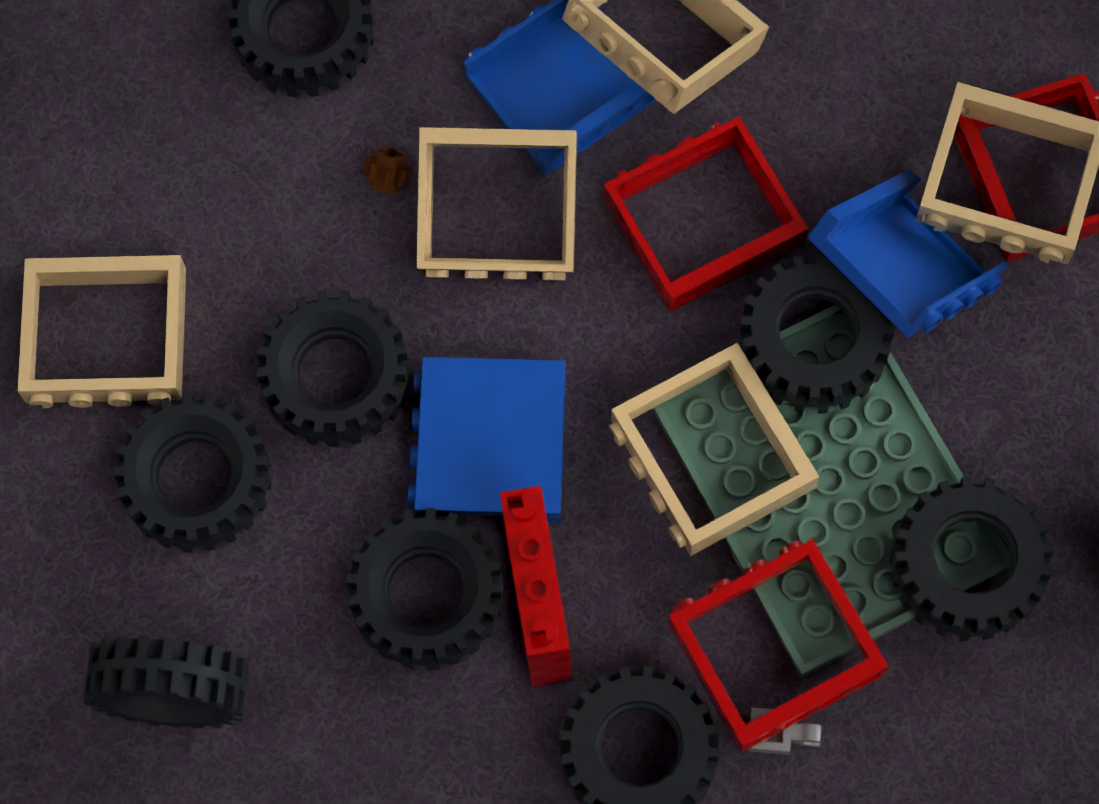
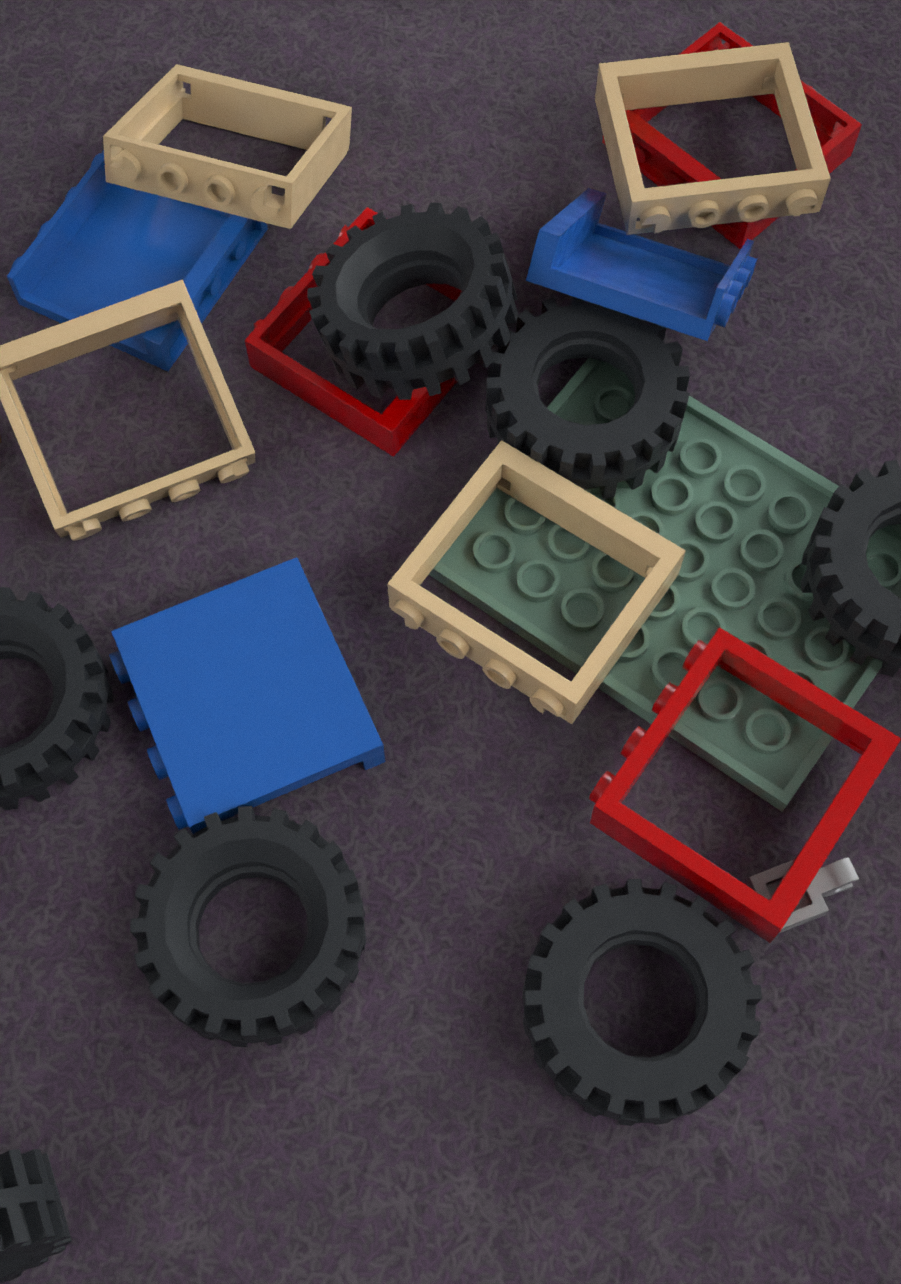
camera: 30 degrees left, 5 degrees down
(536, 586) = (406, 846): red window -> none
(719, 175) = (404, 255): none -> black tyre

